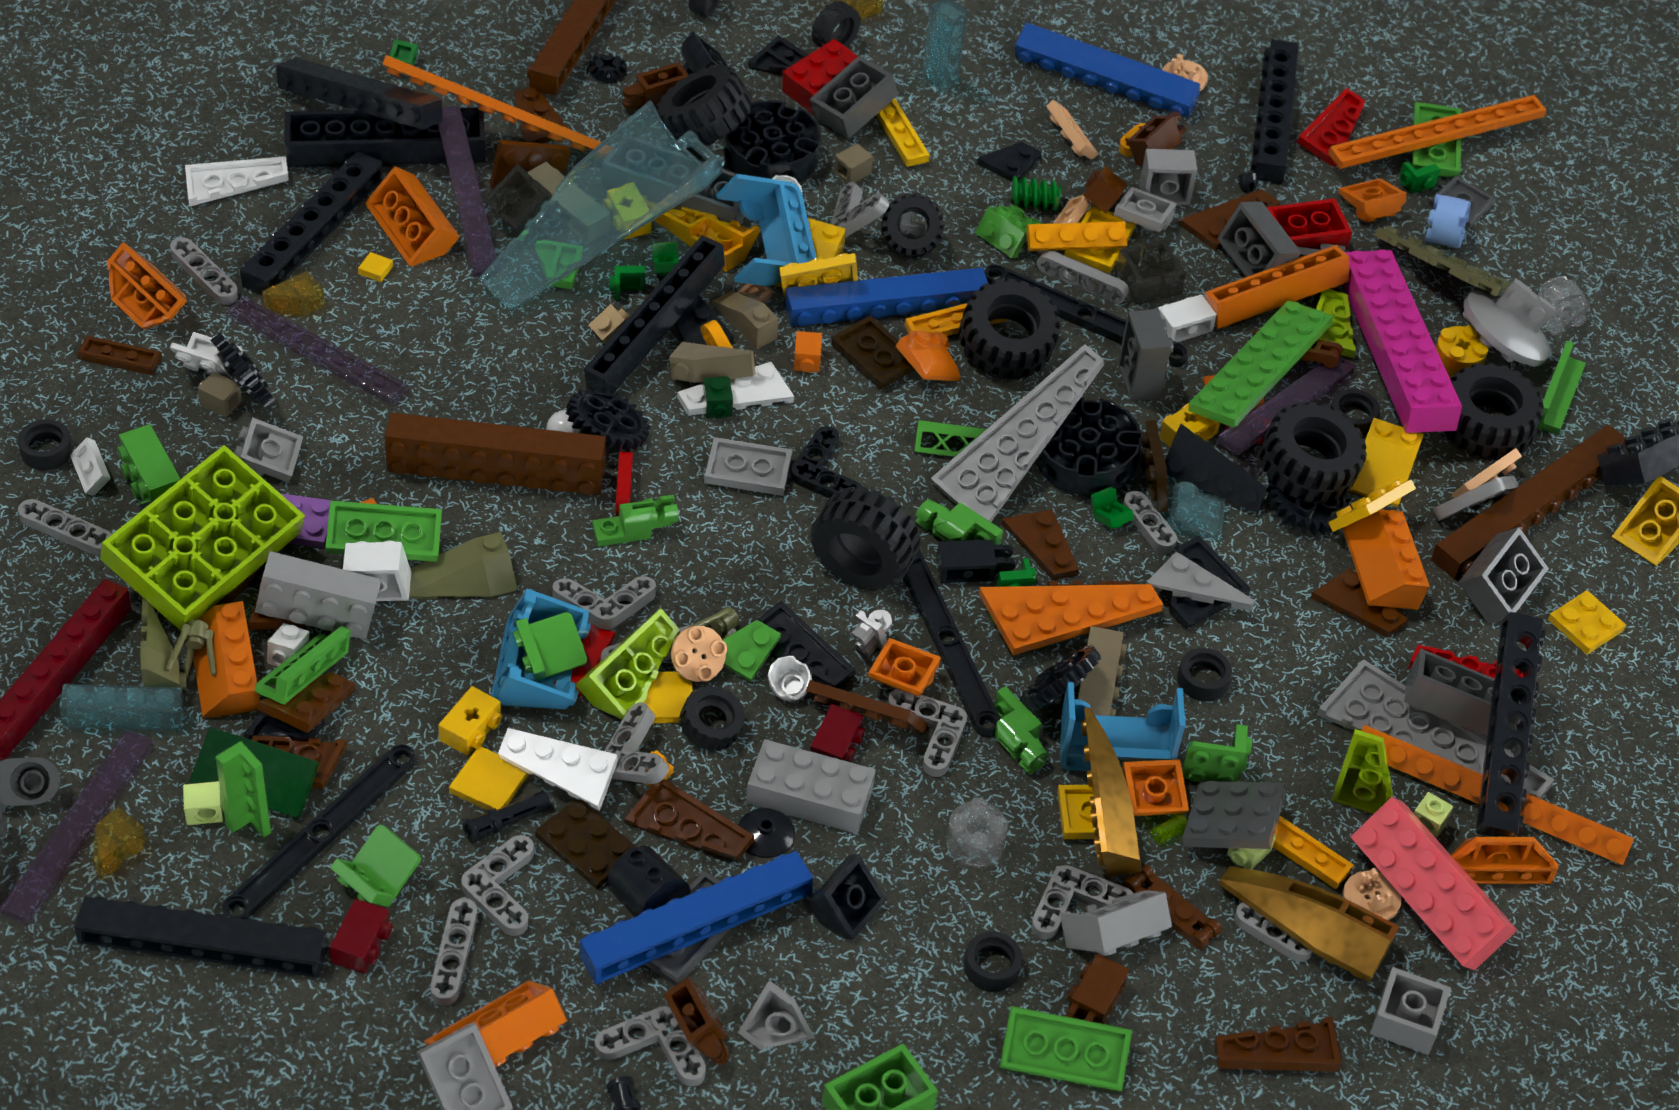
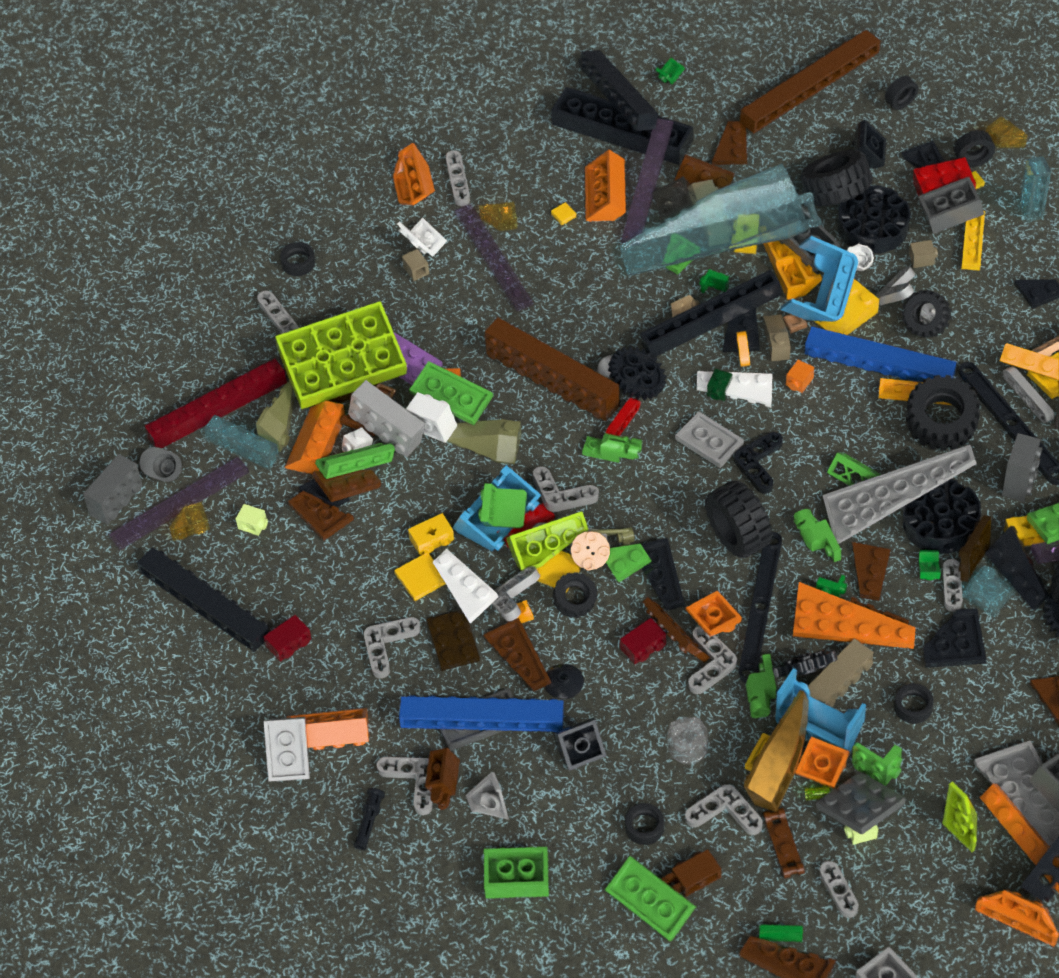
camera: 40 degrees right, 5 degrees up
(90, 466) = (314, 283): white plate -> none
(119, 355) = (375, 216): reddish brown tile -> none
(146, 464) = (342, 293): bright green brick -> none
(195, 634) = (305, 415): olive plant -> none
(224, 179) = (508, 119): white wing -> none
(242, 370) = (431, 255): black gear -> none
(243, 789) = (264, 520): bright green fence -> none
(269, 449) = (420, 313): light grey plate -> none
(286, 775) = (290, 513): dark green tile -> none
(306, 846) = (319, 561): black beam -> none
(312, 223) = (541, 169): black brick -> none
(378, 868) = (321, 603): bright green bracket -> none
(454, 951) = (332, 669): light grey beam -> none
(489, 105) = (693, 125): orange plate -> none
(494, 820) = (405, 602): black pin -> none
(607, 73) = (800, 129): black gear -> none
(645, 880) = (469, 677): black brick -> none
(652, 85) = (818, 148): reddish brown hinge -> none
(664, 257) = (749, 271): green bracket -> none
(698, 361) = (725, 358): dark tan slope -> none
(789, 678) = (637, 589): white hair -> none
(810, 786) = (606, 664): light grey brick -> none
(819, 271) = (849, 326): yellow plate -> none
(871, 631) = (707, 582): light grey hips -> none
(872, 352) = (846, 393): dark brown plate -> none
(929, 355) = (877, 410): orange slope -> none
(972, 560) = (811, 562): black hinge -> none
(1005, 228) = (995, 335): bright green bracket -> none
(1035, 193) = (1035, 322): green piece -> none
(1118, 923) = (736, 837): light grey wedge -> none
(1196, 583) = (945, 634): light grey wing -> none
(1249, 1015) = (781, 933): none -> green tile
(1311, 854) = (897, 849): light orange plate -> none
(1316, 918) = (868, 895): pearl gold wedge -> none
(1367, 885) = (920, 906): light nougat plate -> none
(1433, 813) = (996, 865): yellowish green brick -> none
(1433, 884) = (960, 907): coral brick -> none

